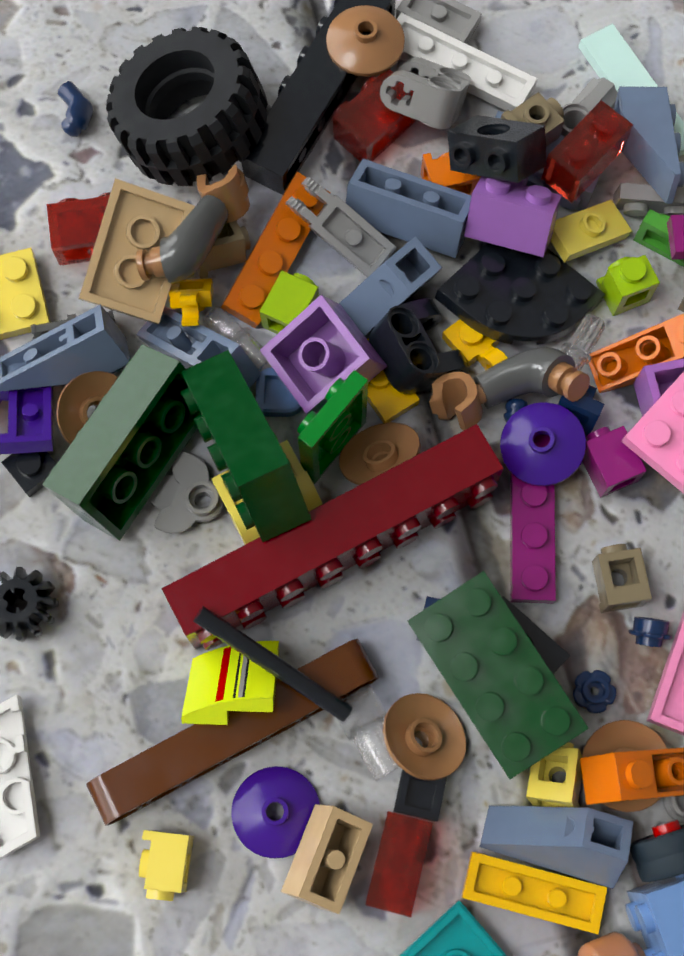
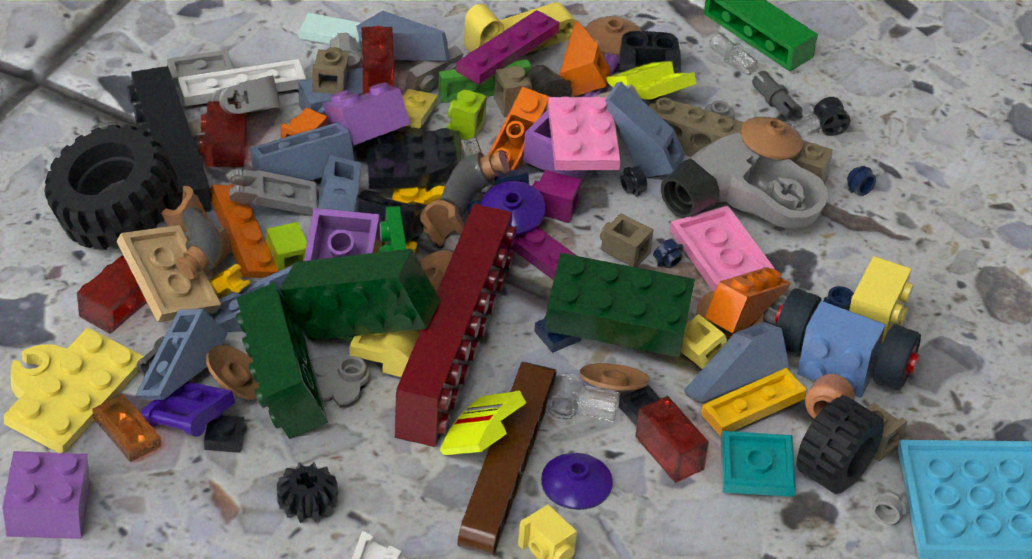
camera: 50 degrees left, 30 degrees down
(78, 111) = (15, 246): dark blue arm -> none
(272, 664) = (498, 382): black bar -> none
(327, 858) = (632, 460): tan brick -> none
(365, 53) = (178, 96): medium nougat dish -> none
(497, 148) = (329, 83): black brick -> none

